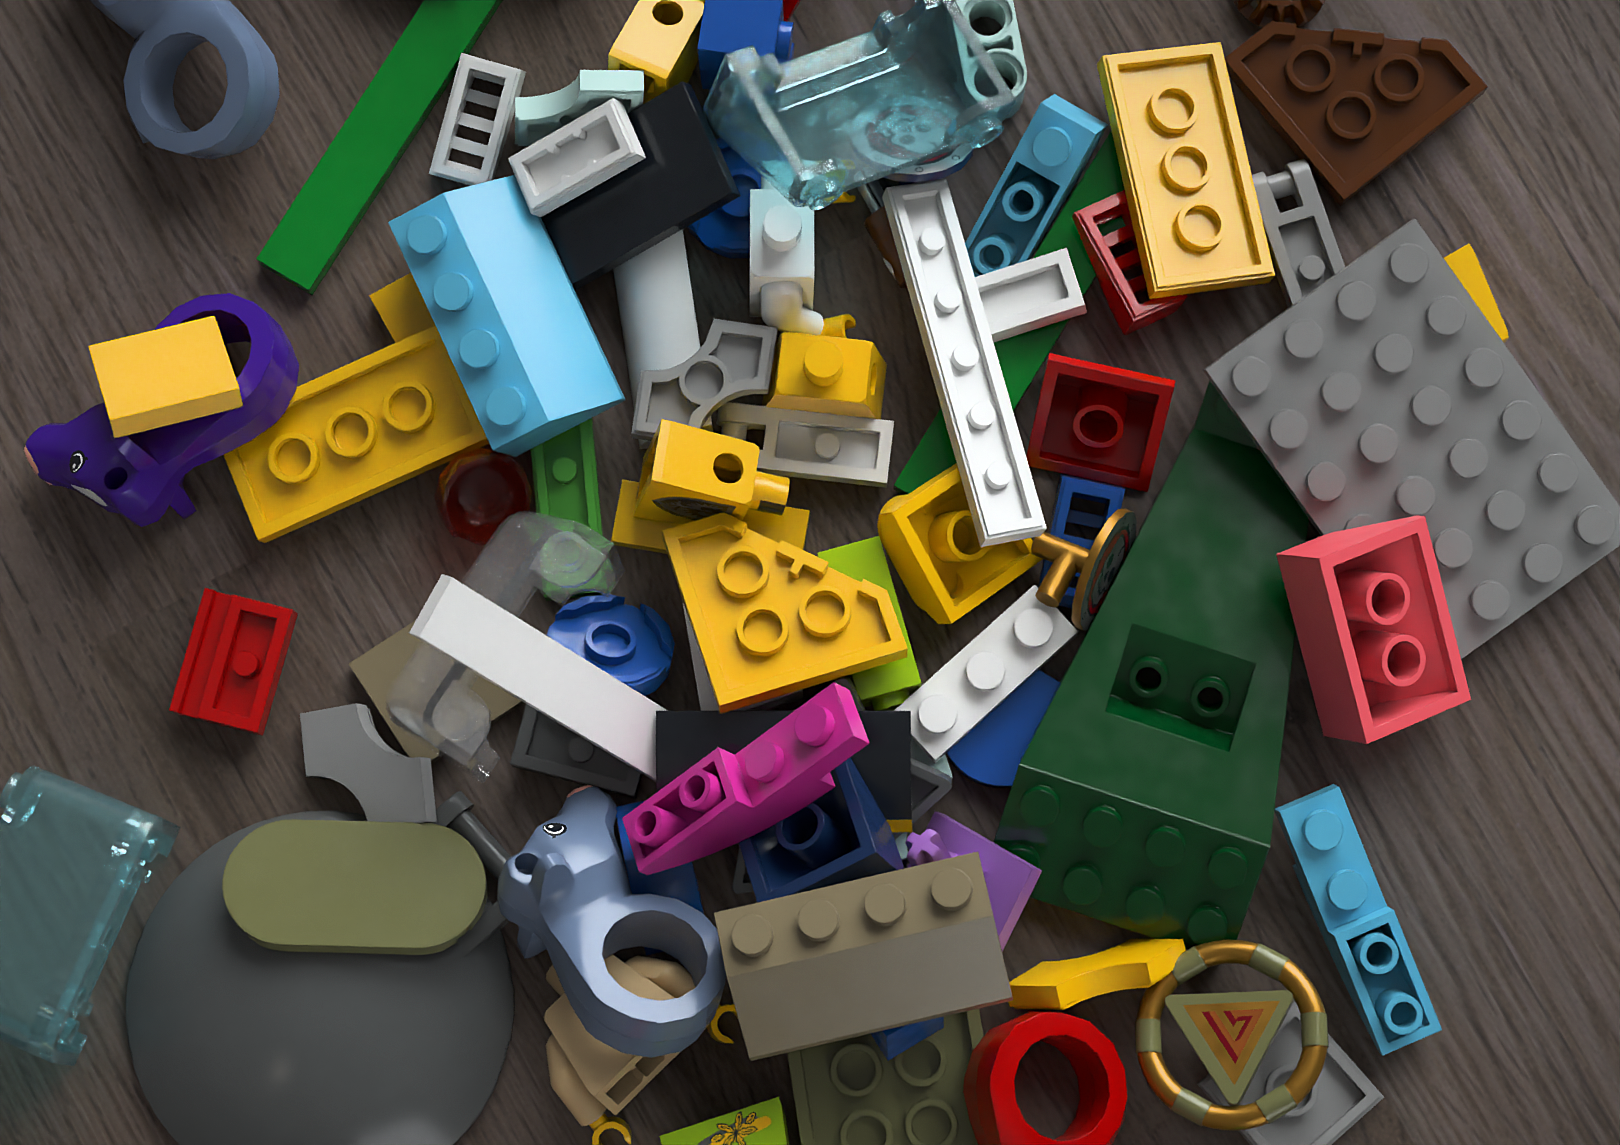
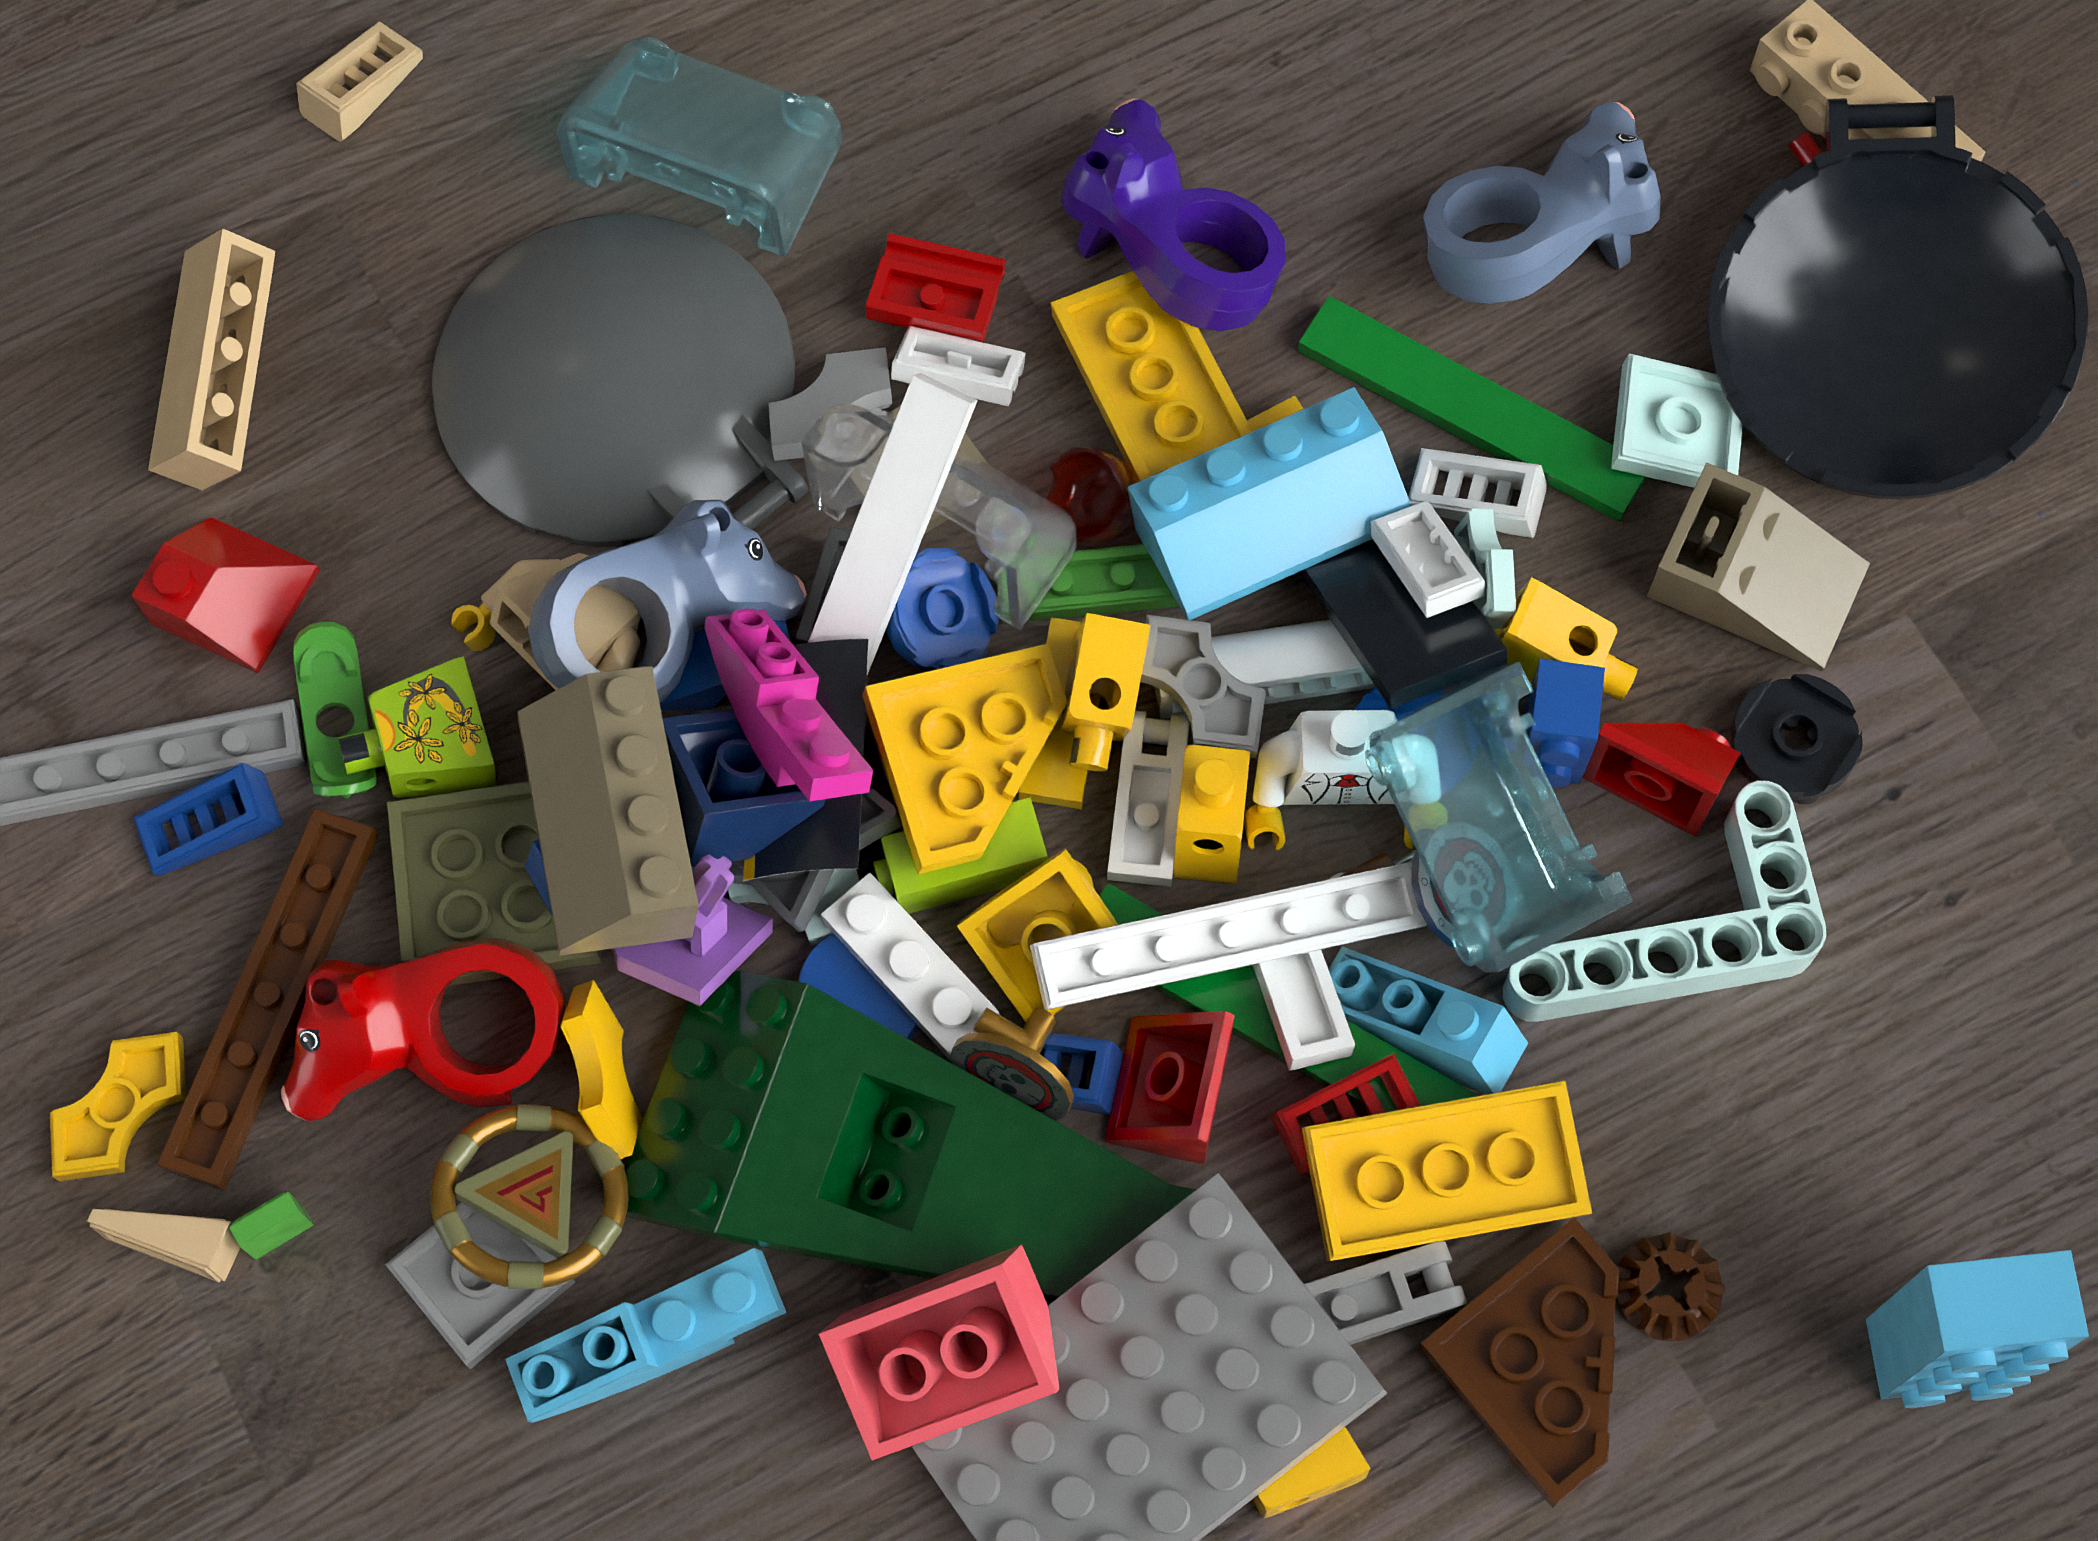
camera: 90 degrees right, 10 degrees down
(165, 376) = (1193, 193): yellow tile -> none
(332, 638) = (961, 363): none -> white tile
(354, 886) = (711, 385): olive tile -> none

